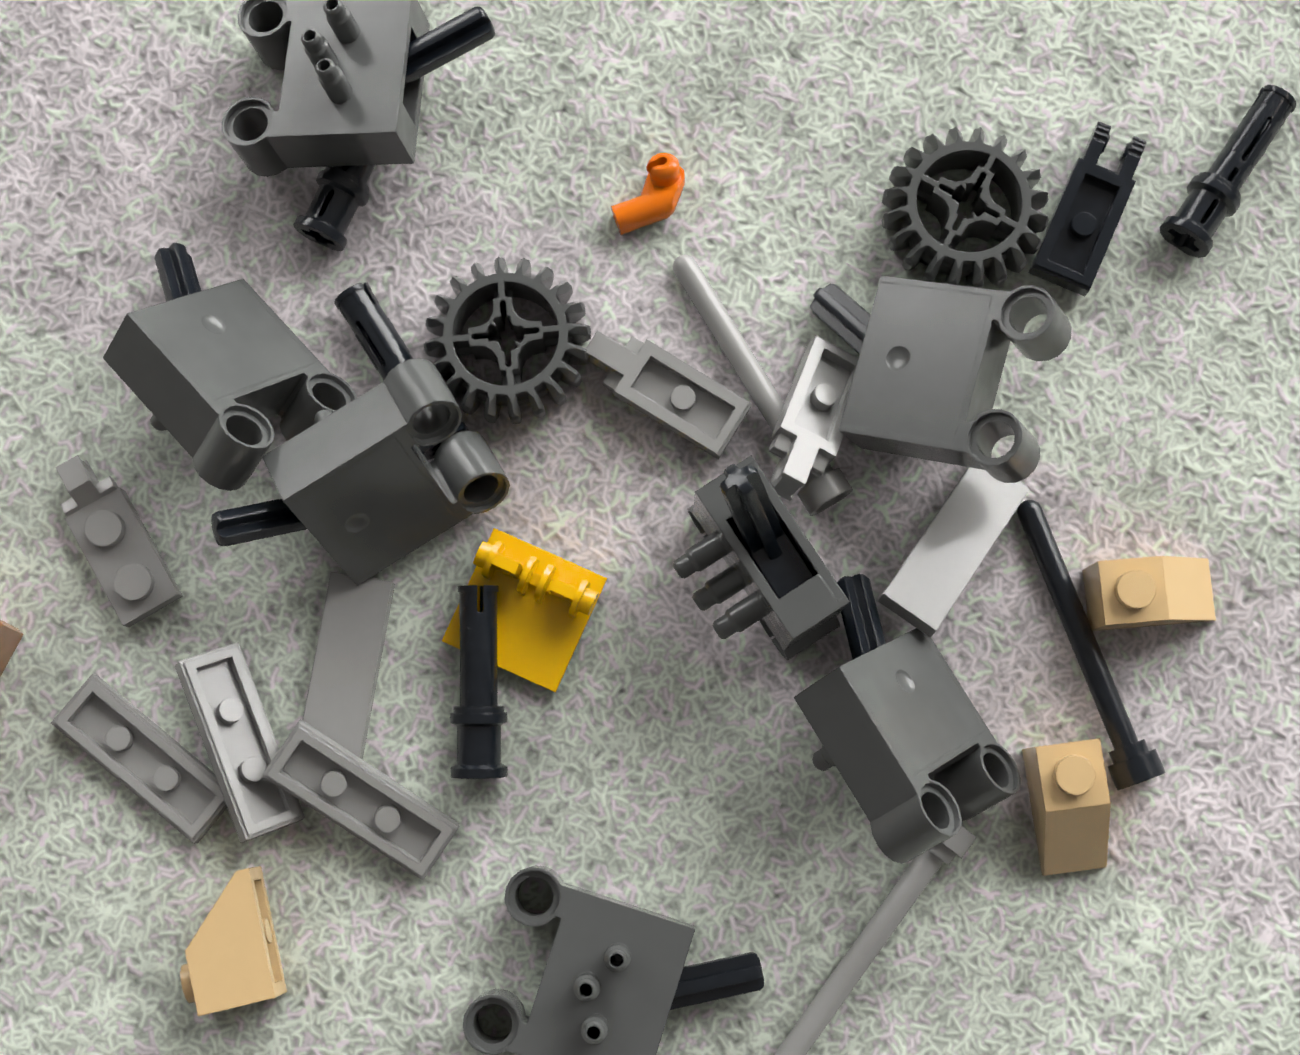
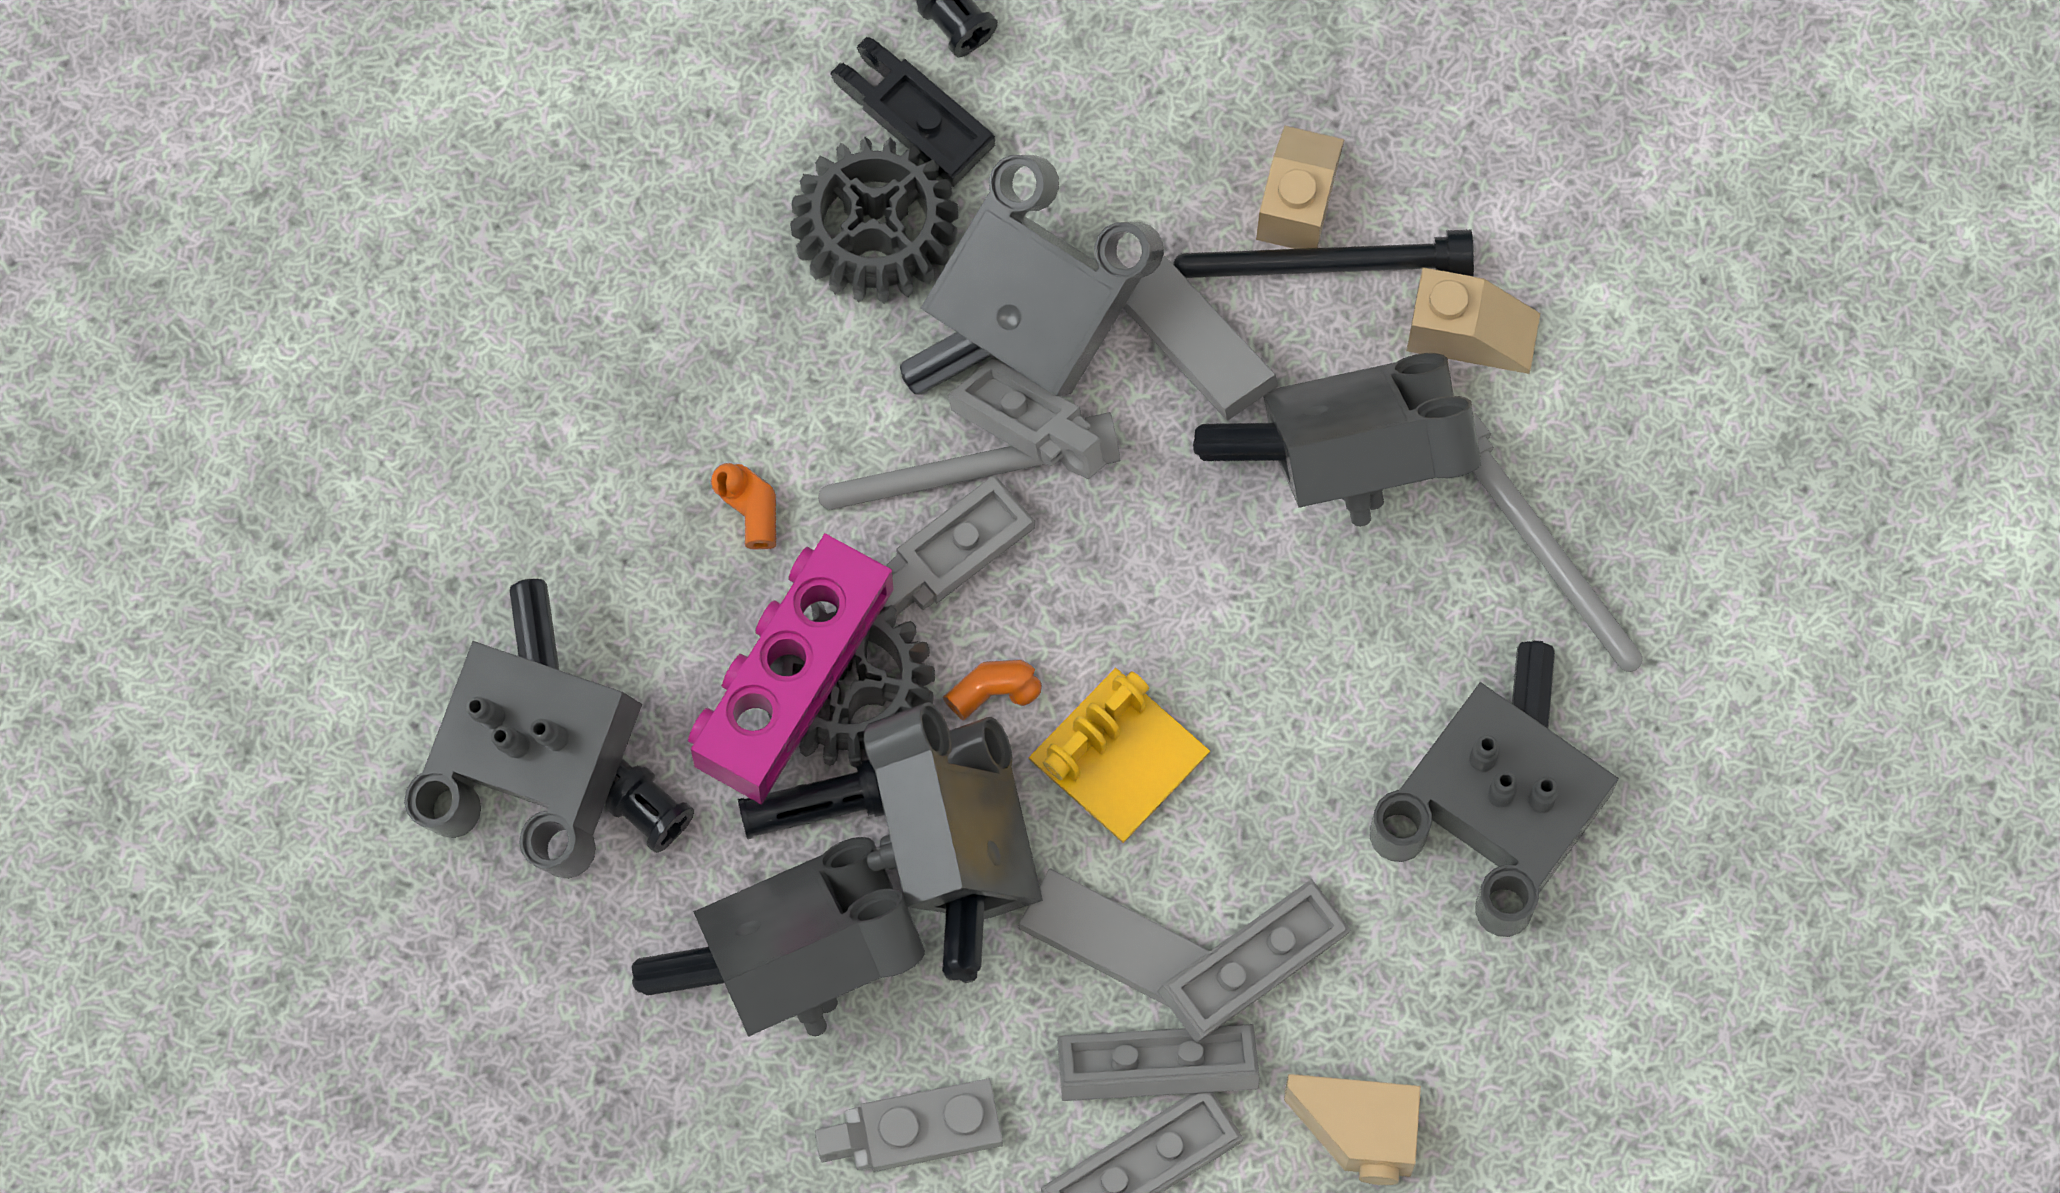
camera: 75 degrees left, 10 degrees down
(388, 238) = (756, 758): none -> dark pink brick
(478, 715) = (1208, 823): black pin -> none
(557, 471) = (990, 679): none -> orange arm
(765, 557) = (1158, 491): dark grey piece -> none

